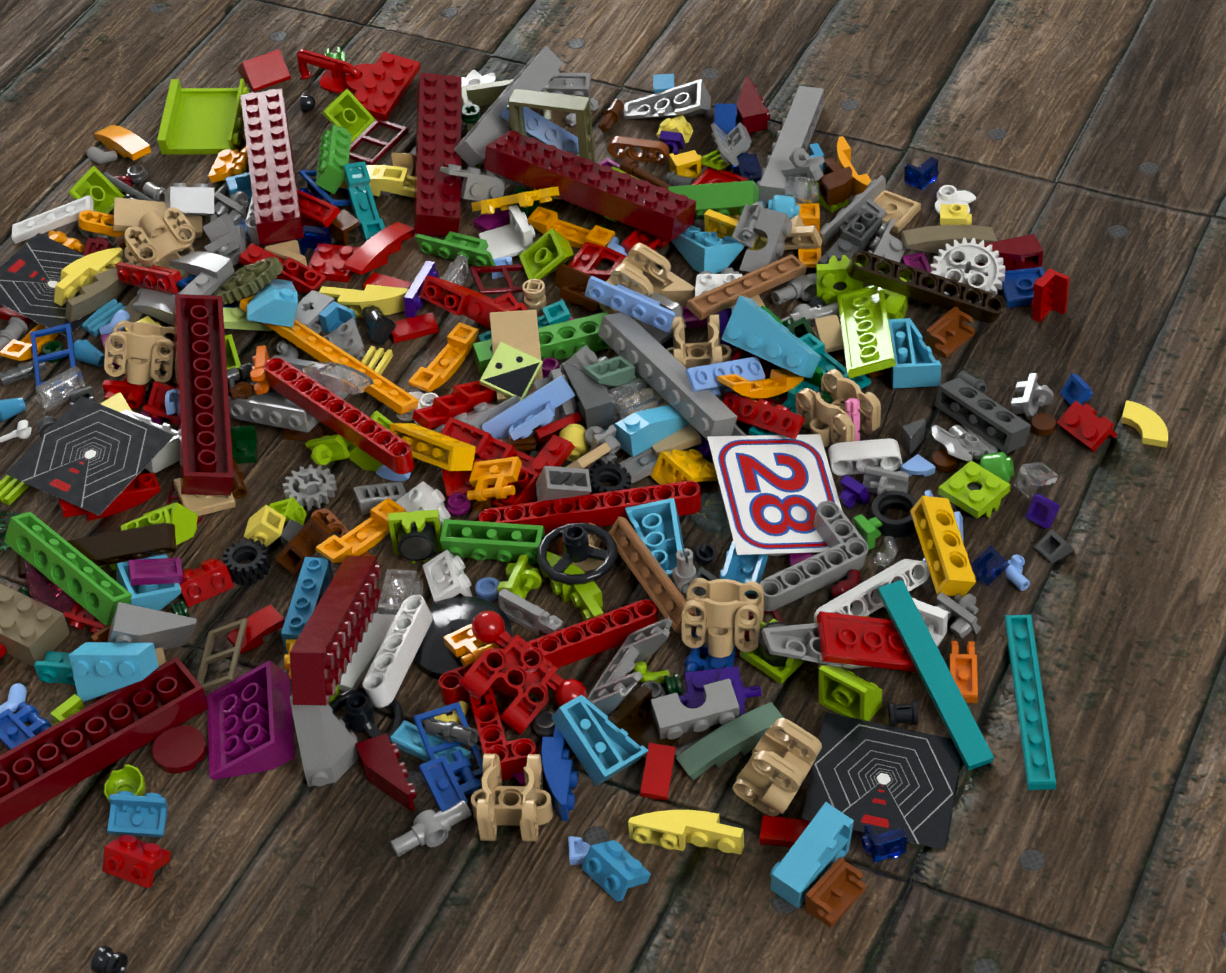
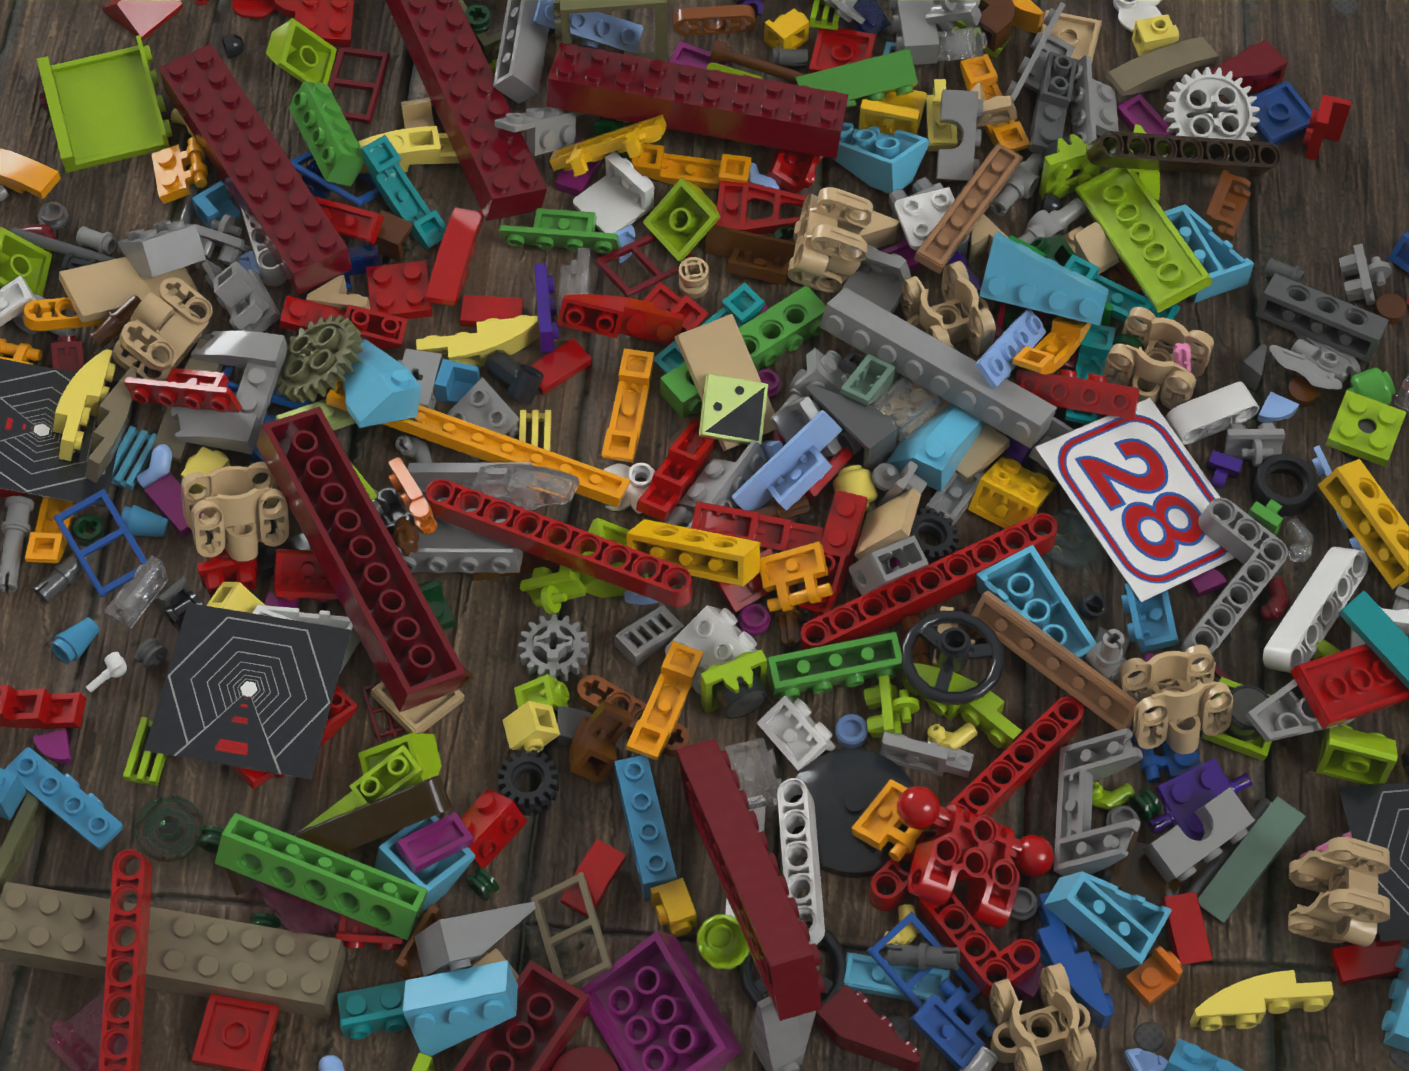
camera: 25 degrees left, 15 degrees up
(171, 401) = (314, 575): light blue tile -> none
(561, 612) = (951, 740): none -> light yellow arm
(618, 797) = (1155, 976): none -> orange bracket
(630, 303) = (853, 276): light blue bracket -> none
(745, 229) = (927, 112): light grey hinge -> none
(784, 204) = (952, 75): medium azure head -> none

